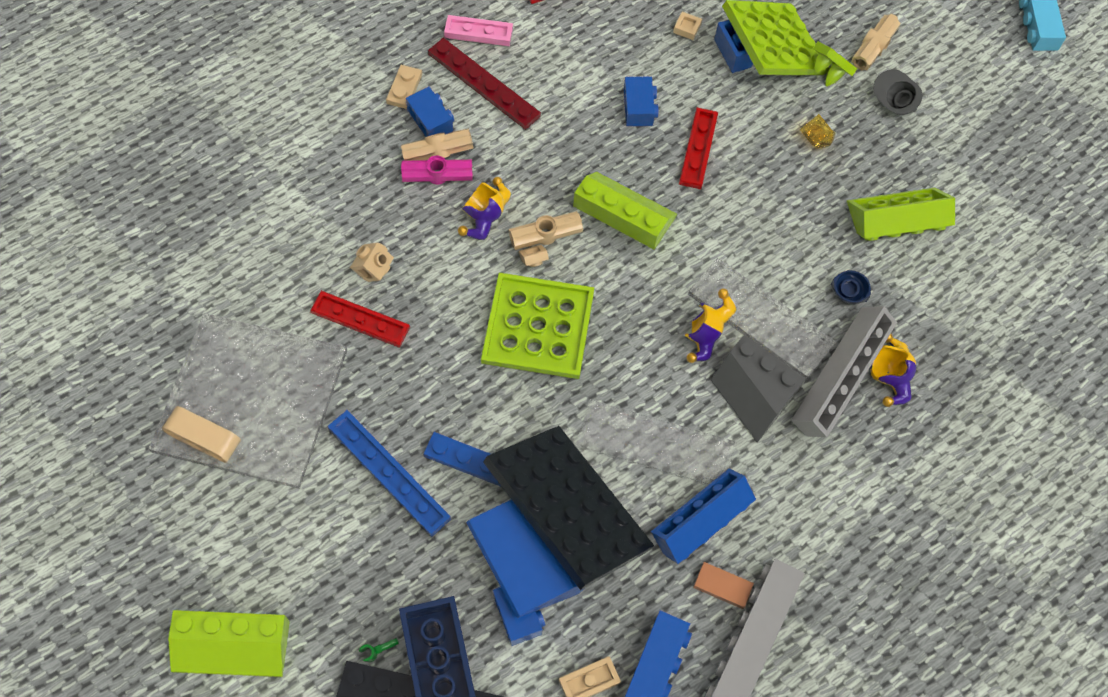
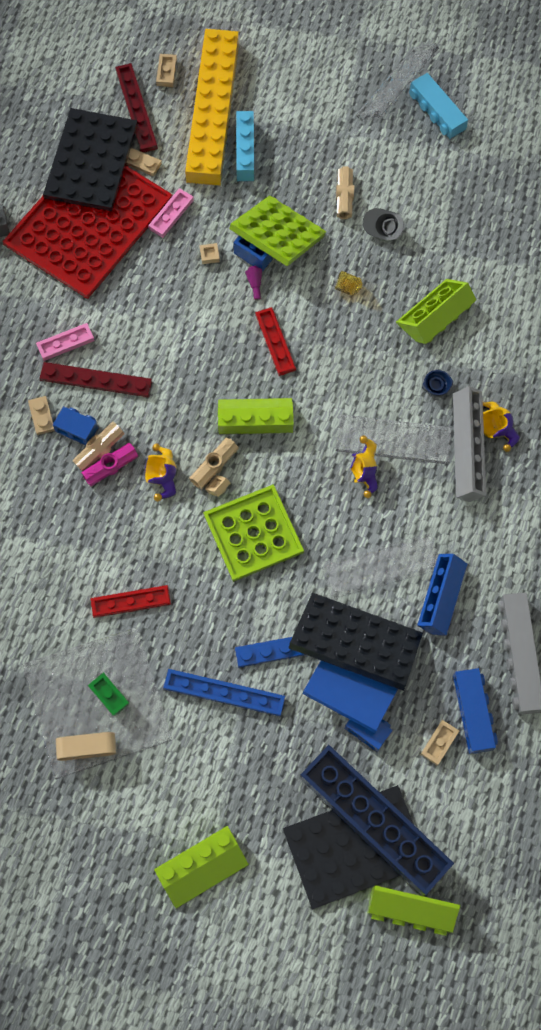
camera: 30 degrees left, 5 degrees up
(264, 396) = (108, 694): none -> green plate
(372, 261) = (112, 557): tan brick -> none
(377, 649) = (297, 807): green hand -> none
(639, 101) = (214, 330): blue brick -> none
(719, 72) = (254, 276): none -> magenta cone
(723, 585) = (480, 631): nougat tile -> none
(756, 385) = (420, 487): dark grey wedge -> none
(839, 65) = (328, 227): lime tile -> none

